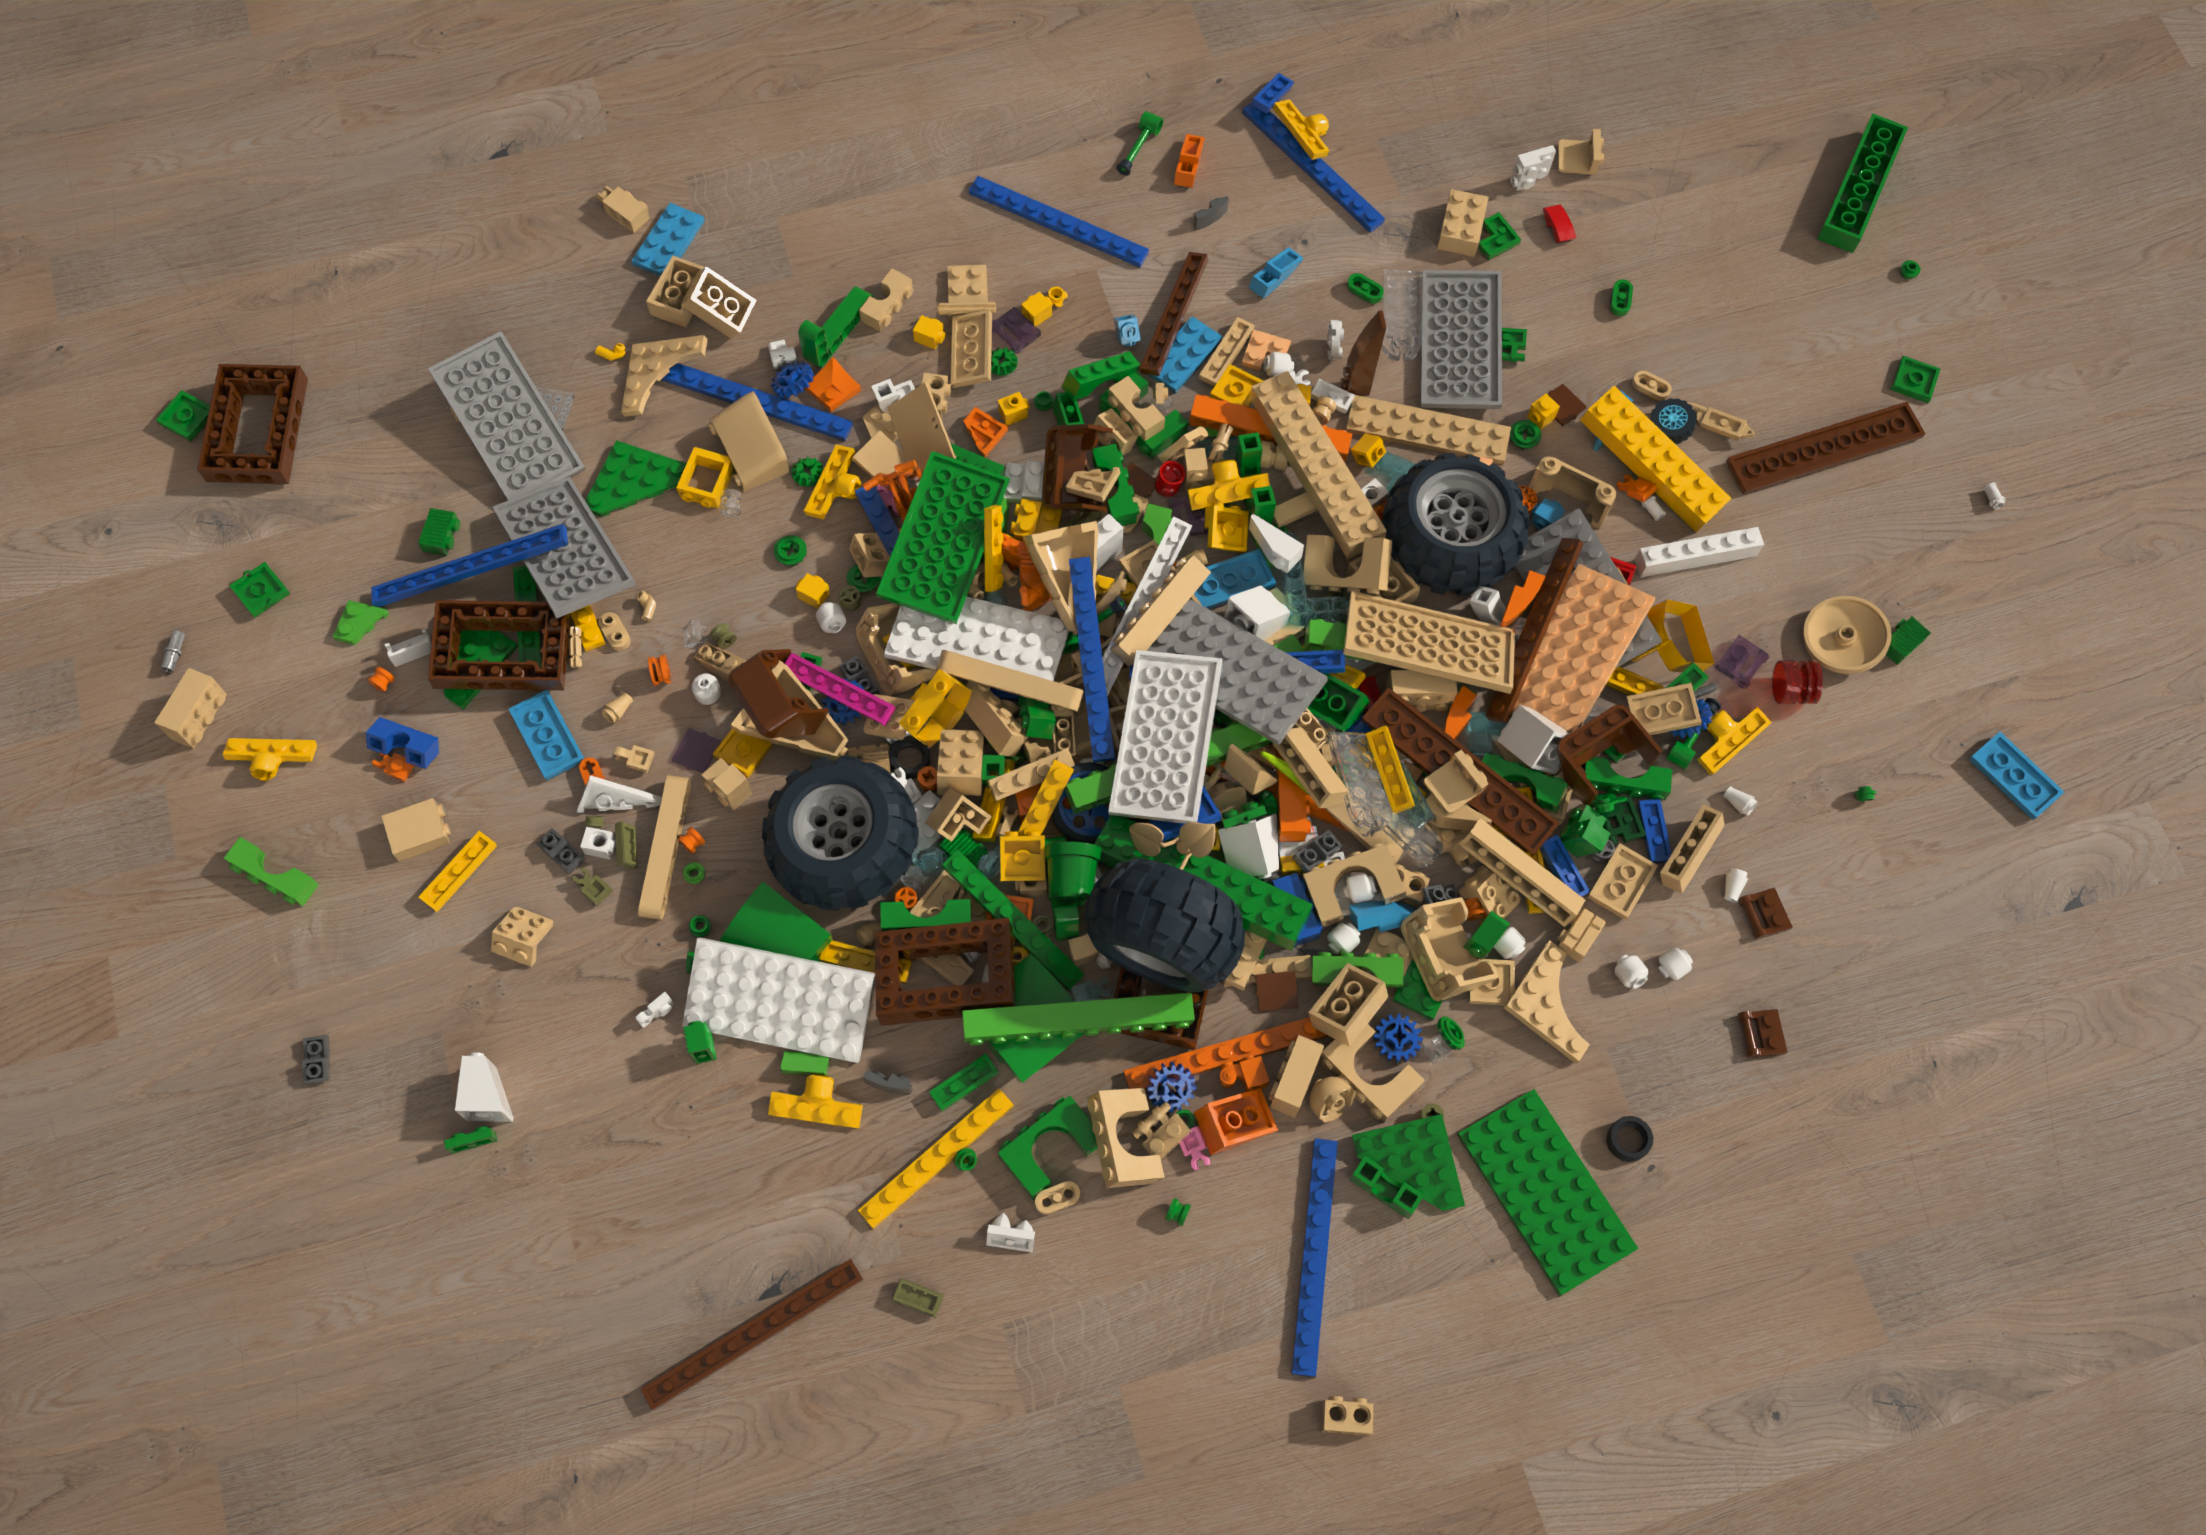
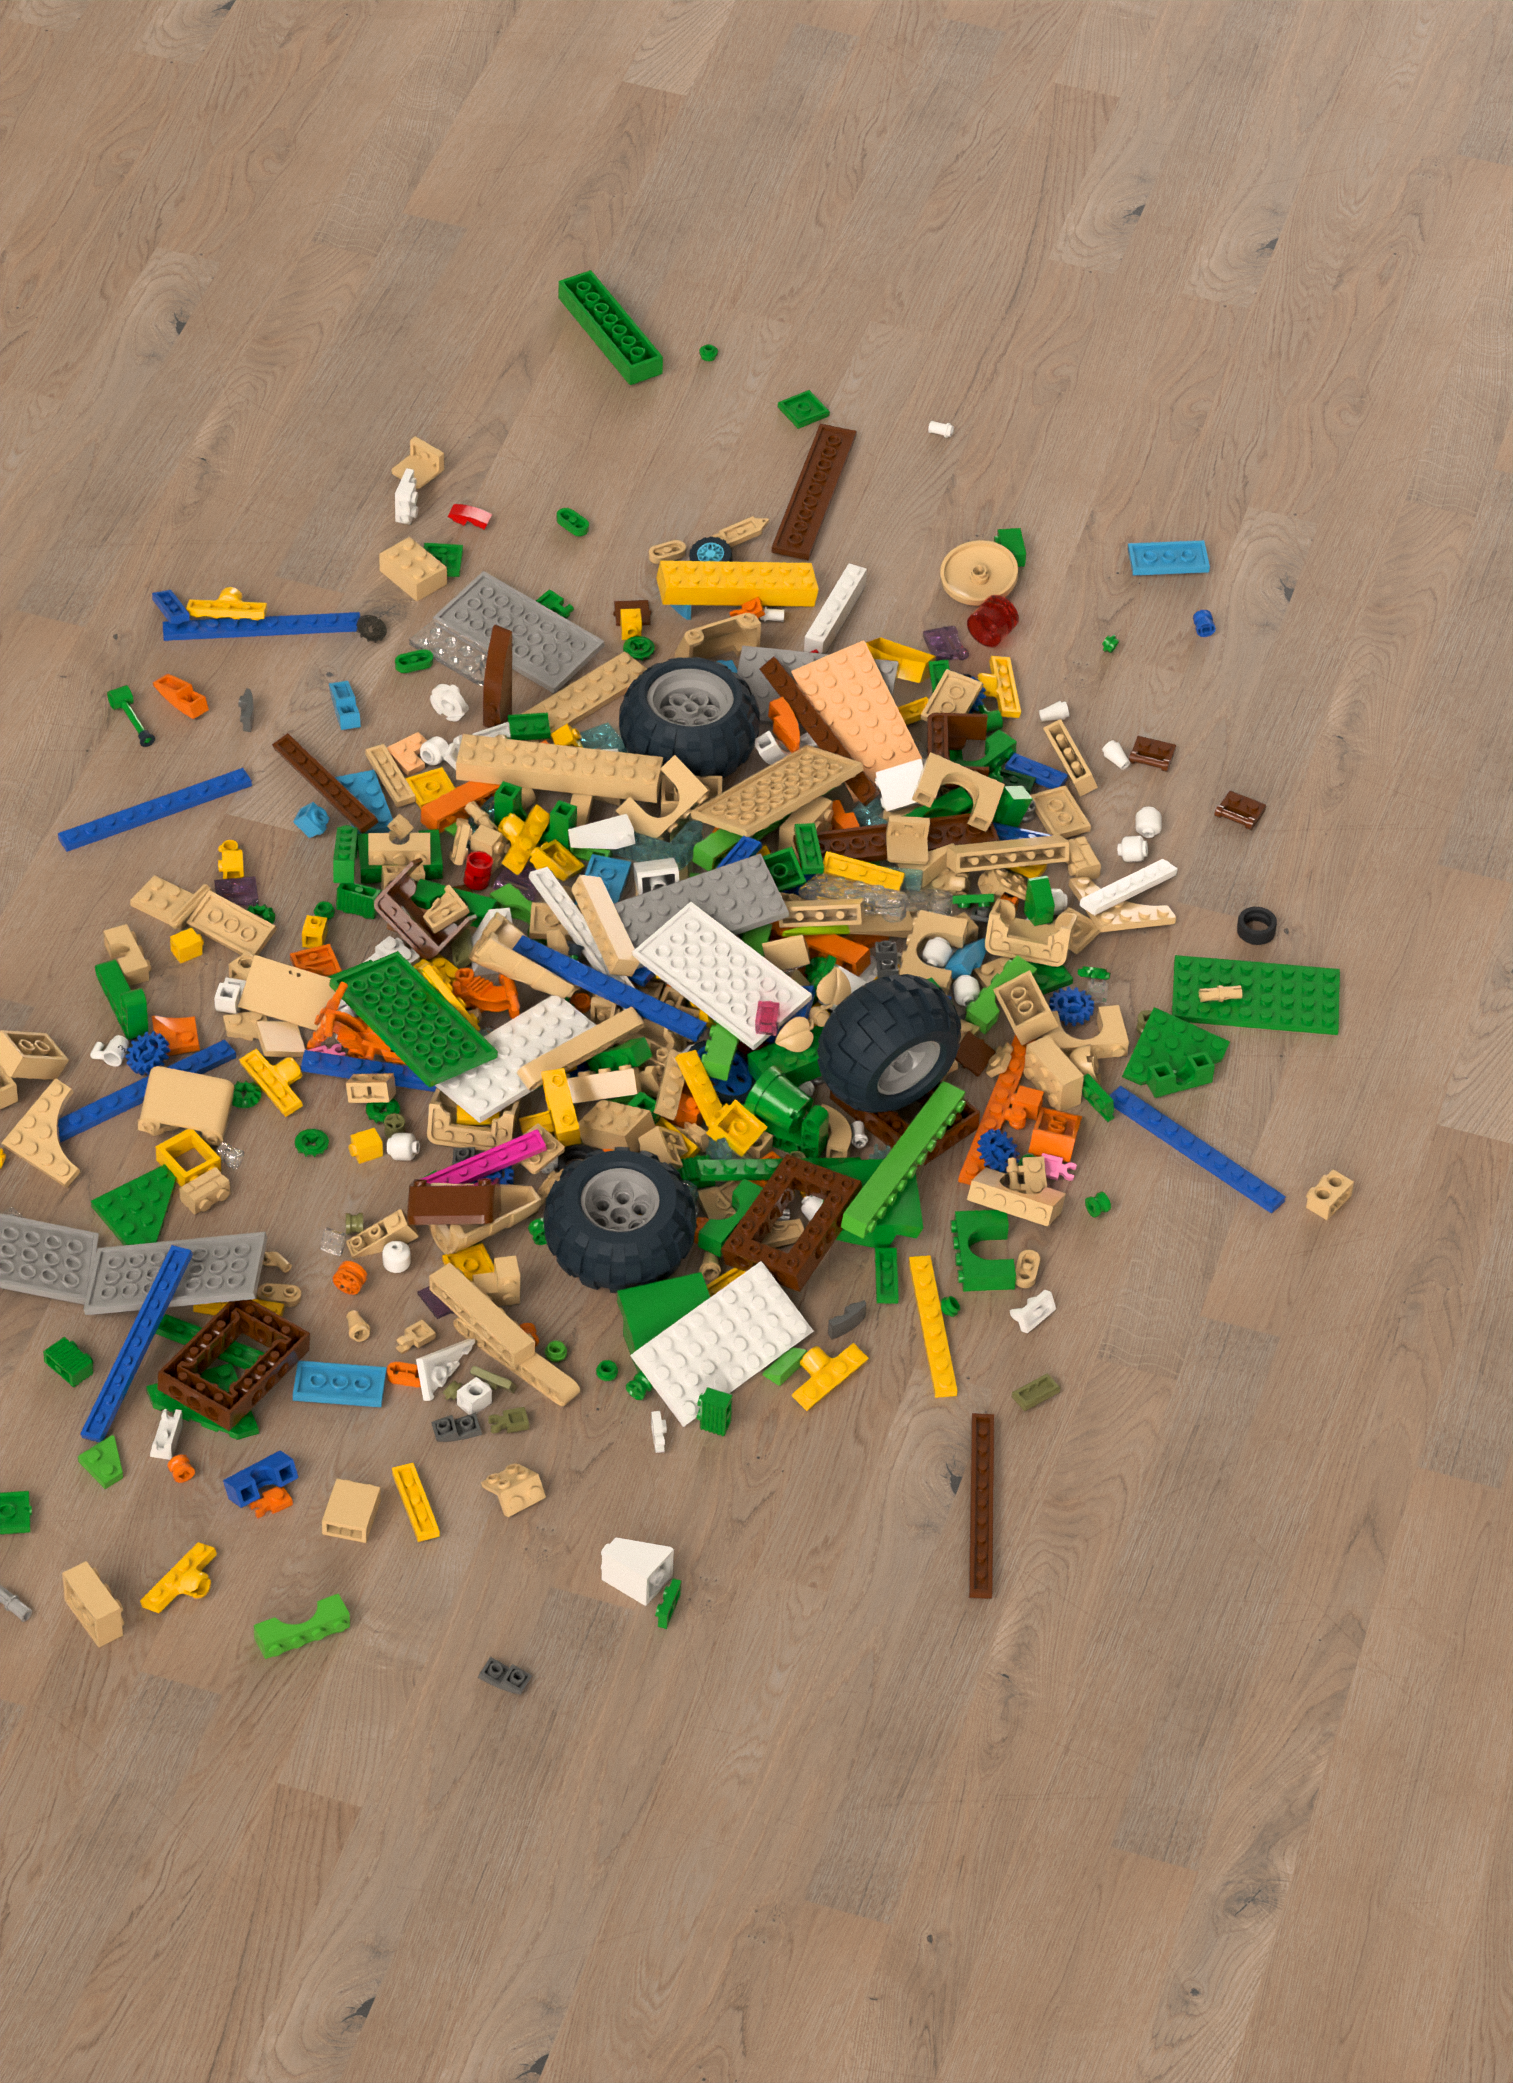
camera: 55 degrees left, 20 degrees down
(674, 794) = (482, 1315): none -> tan brick
(681, 510) = (205, 1191): none -> tan brick
(1138, 803) = (767, 1018): none -> clear pink brick
(1283, 1019) = (999, 1062): none -> tan plate
(1304, 1122) = (1098, 1098): none -> green plate
(1359, 413) = (529, 726): none -> green plate
(1374, 228) = (379, 628): none -> clear smoke gear
(1377, 709) = (808, 848): none -> green plate
(1448, 874) = (965, 901): none -> green plate
(1512, 1161) = (1220, 993): none -> tan pin
(1569, 807) = (983, 790): none -> tan arch
(1577, 997) = (1128, 887): none -> white plate
(1961, 858) = (1204, 623): none -> blue wheel

